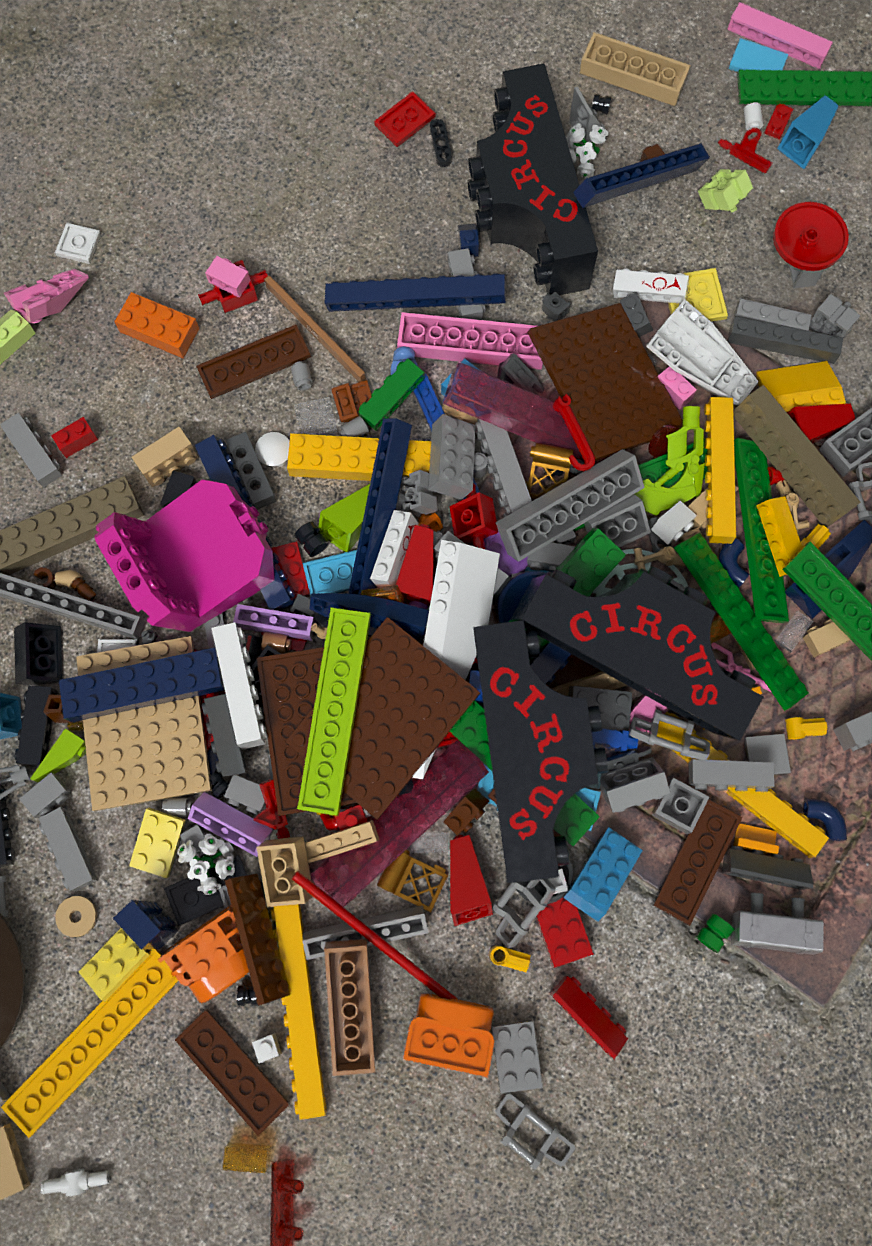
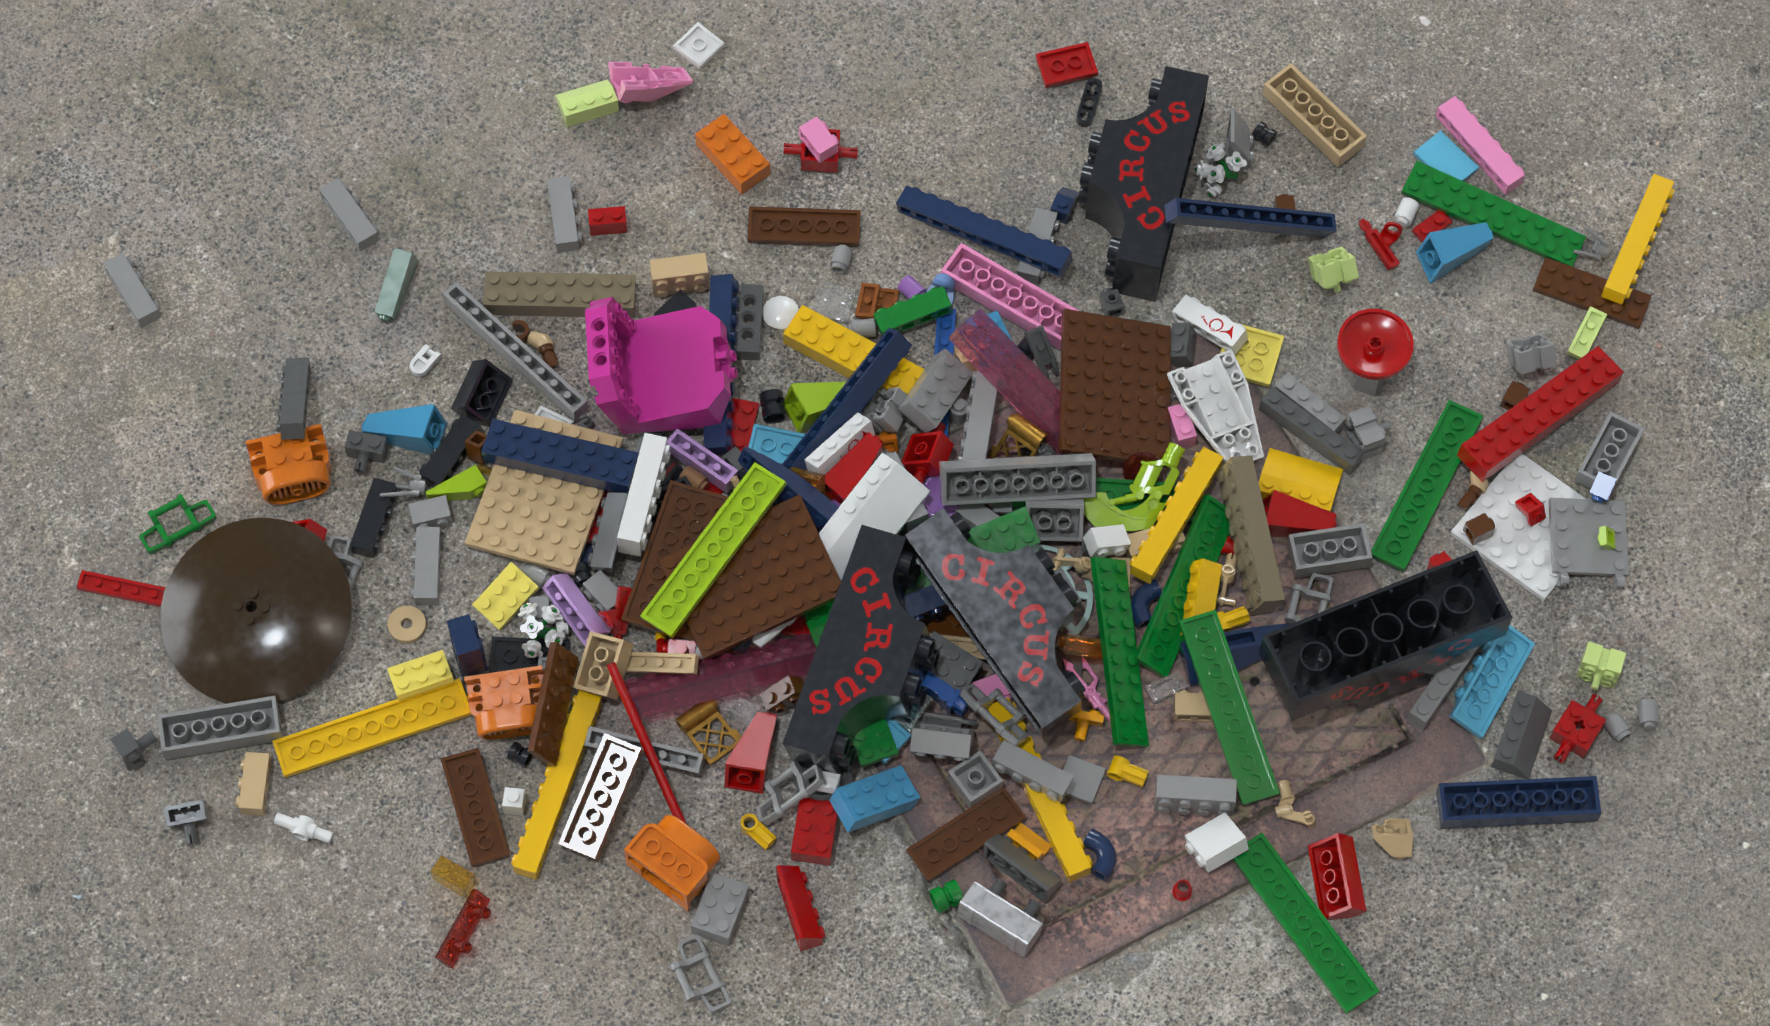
camera: 25 degrees right, 10 degrees down
(315, 329) = (875, 222): medium nougat tile -> none
(377, 373) = (910, 287): none -> medium lavender brick
(563, 407) = (1055, 420): red piece -> none

